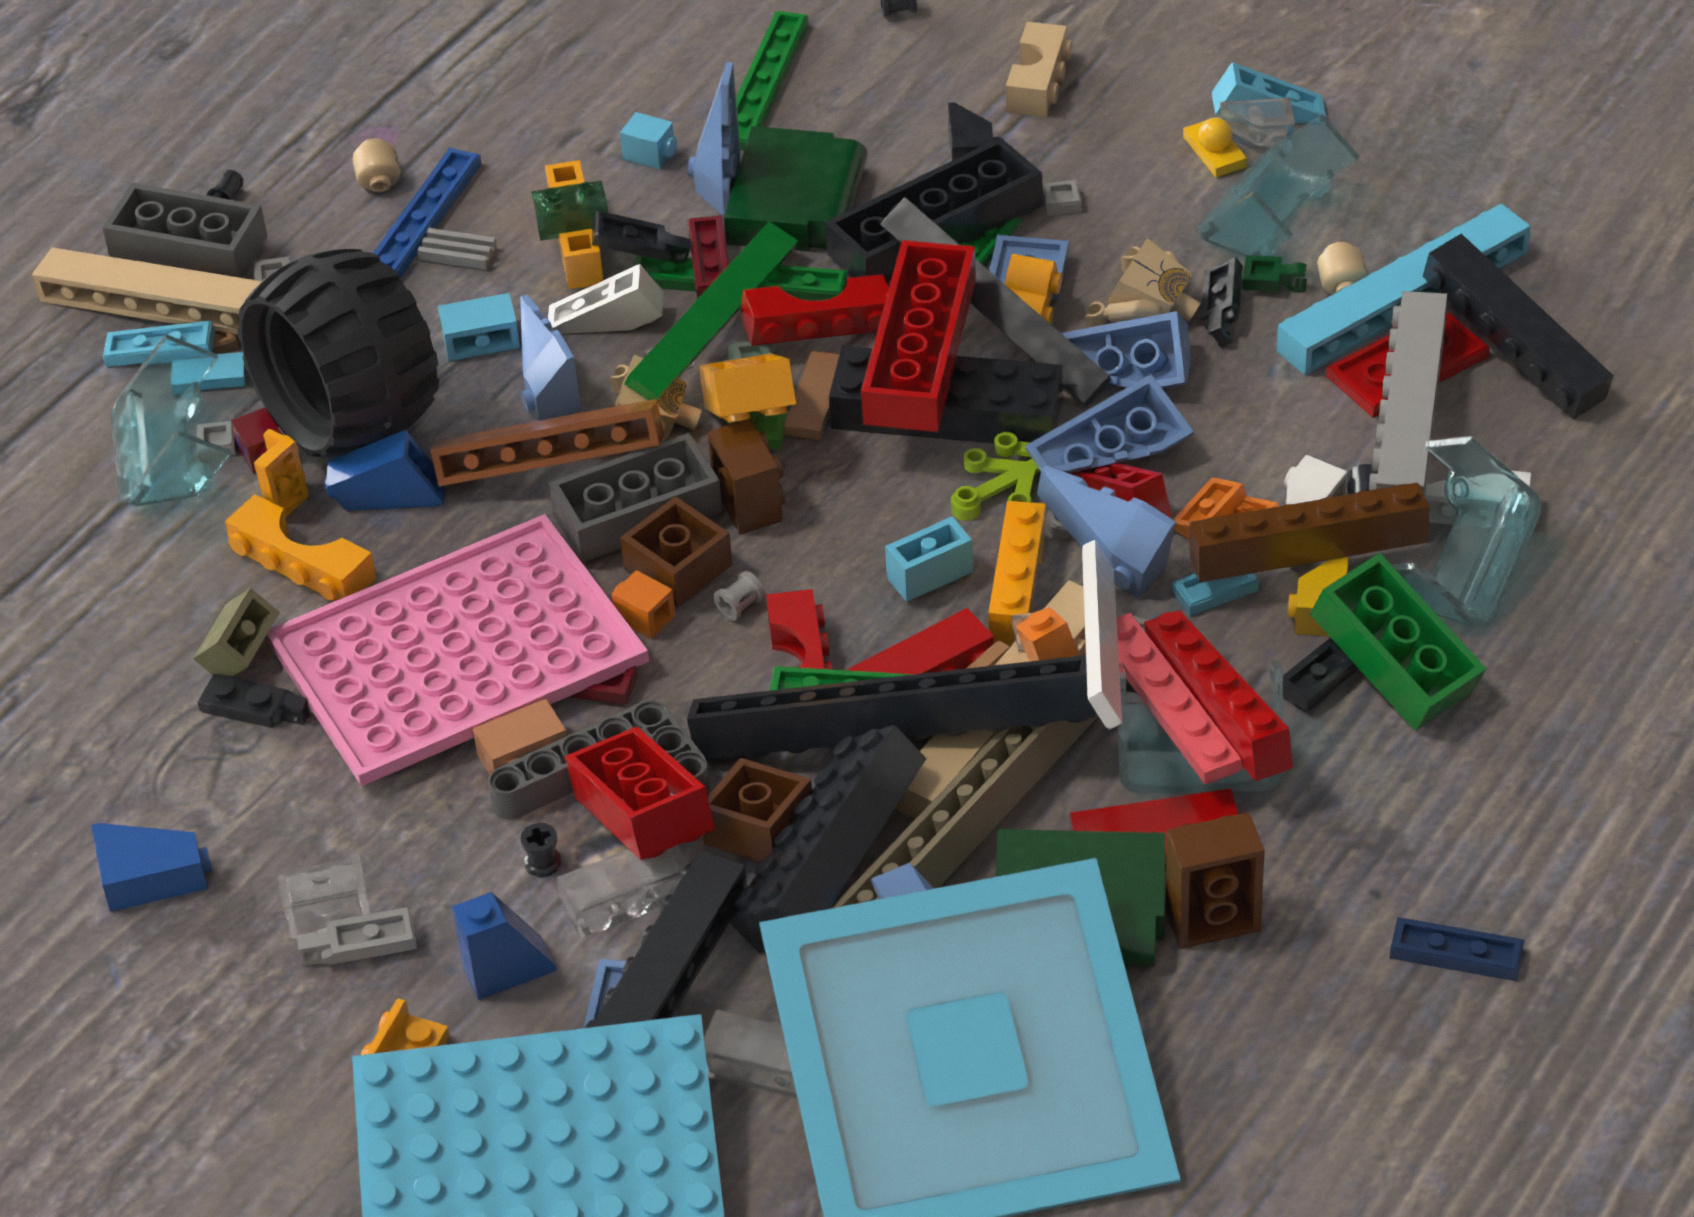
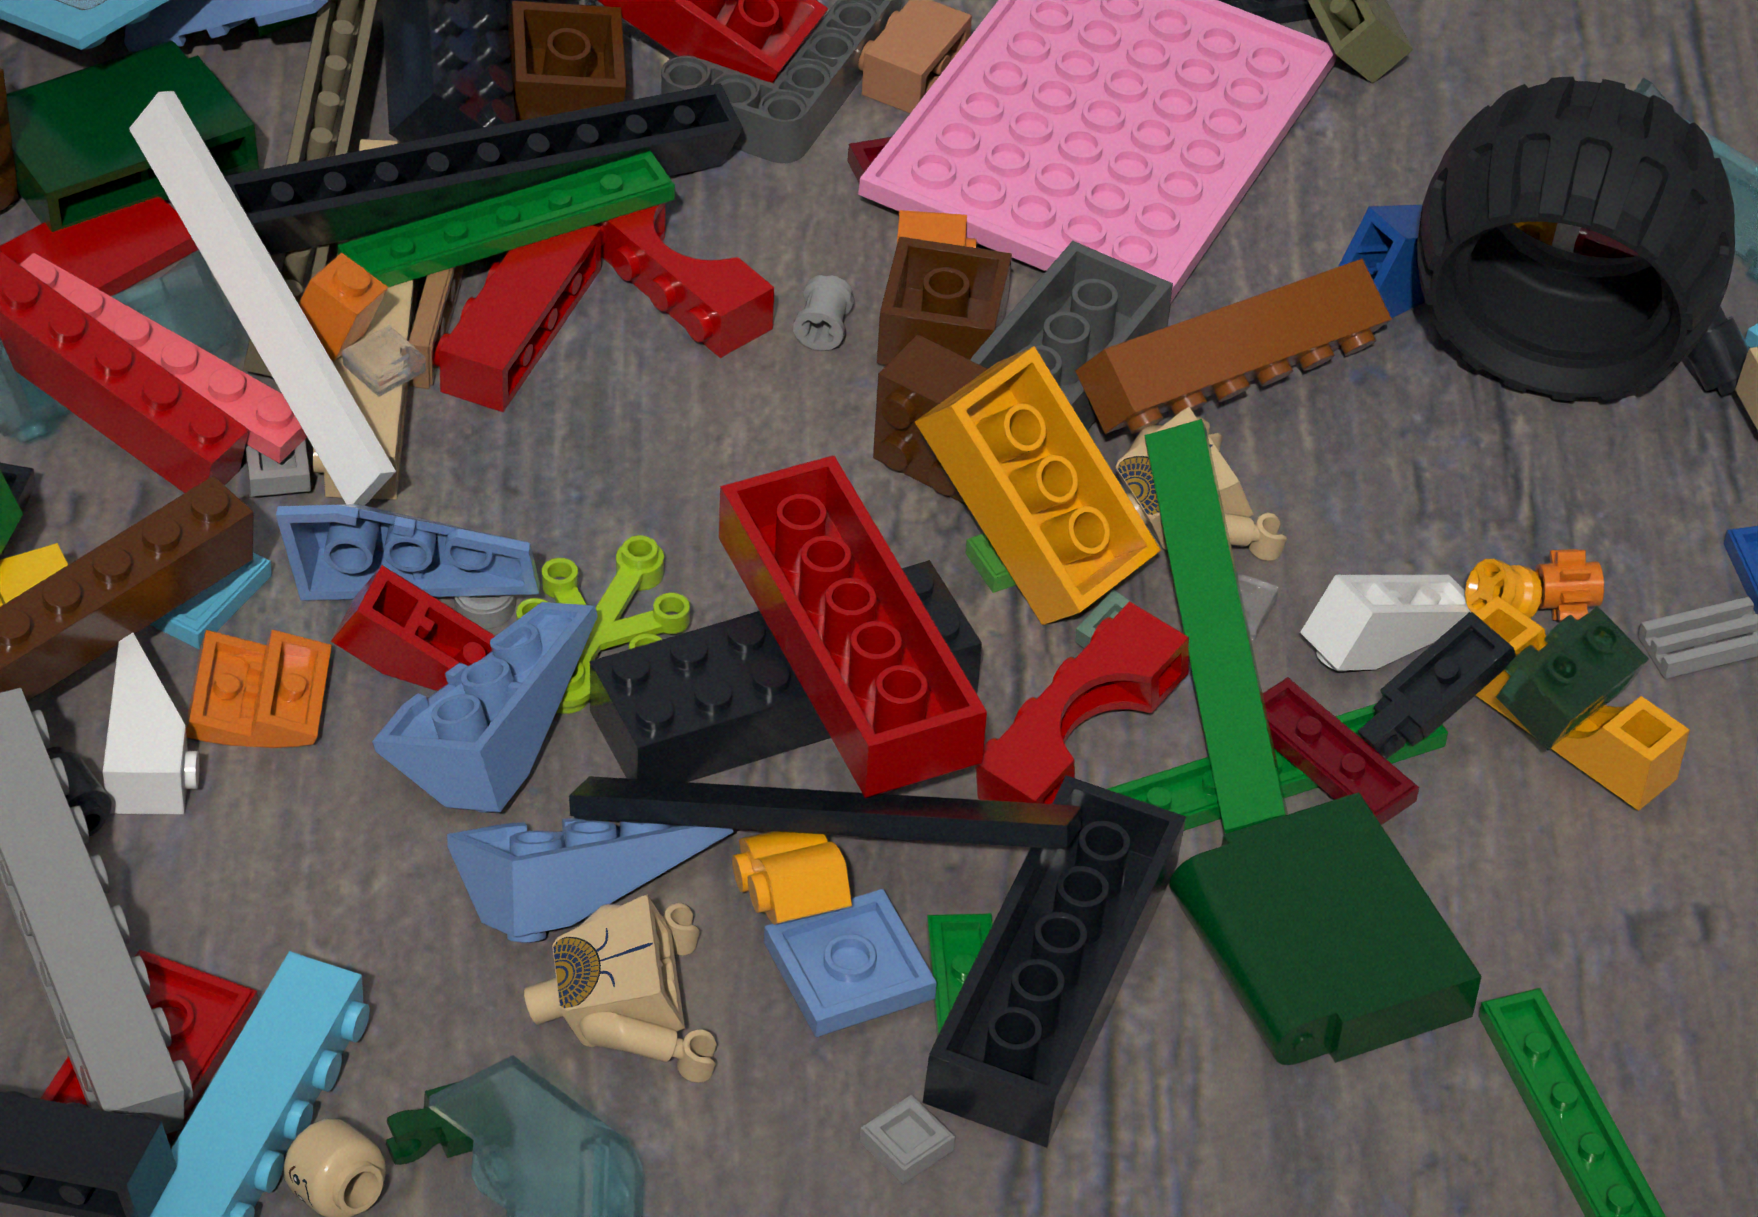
camera: 140 degrees right, 0 degrees up
(330, 569) = (1347, 143): light orange arch -> none
(479, 327) = (1532, 512): medium azure brick -> none
(503, 279) = (1570, 584): none -> orange gear
(543, 289) = (1512, 583): none -> light orange wheel
(547, 367) = (1382, 494): medium blue wedge -> none
(648, 140) = (1629, 919): medium azure brick -> none
(719, 146) = (1470, 864): medium blue wedge -> none
(811, 410) = (1006, 664): medium nougat tile -> none
(929, 559) = (608, 426): medium azure brick -> none
(967, 130) = (1138, 1155): black slope -> none
(1016, 566) = (461, 427): light orange arch -> none
(1222, 299) = (494, 1018): black hinge -> none

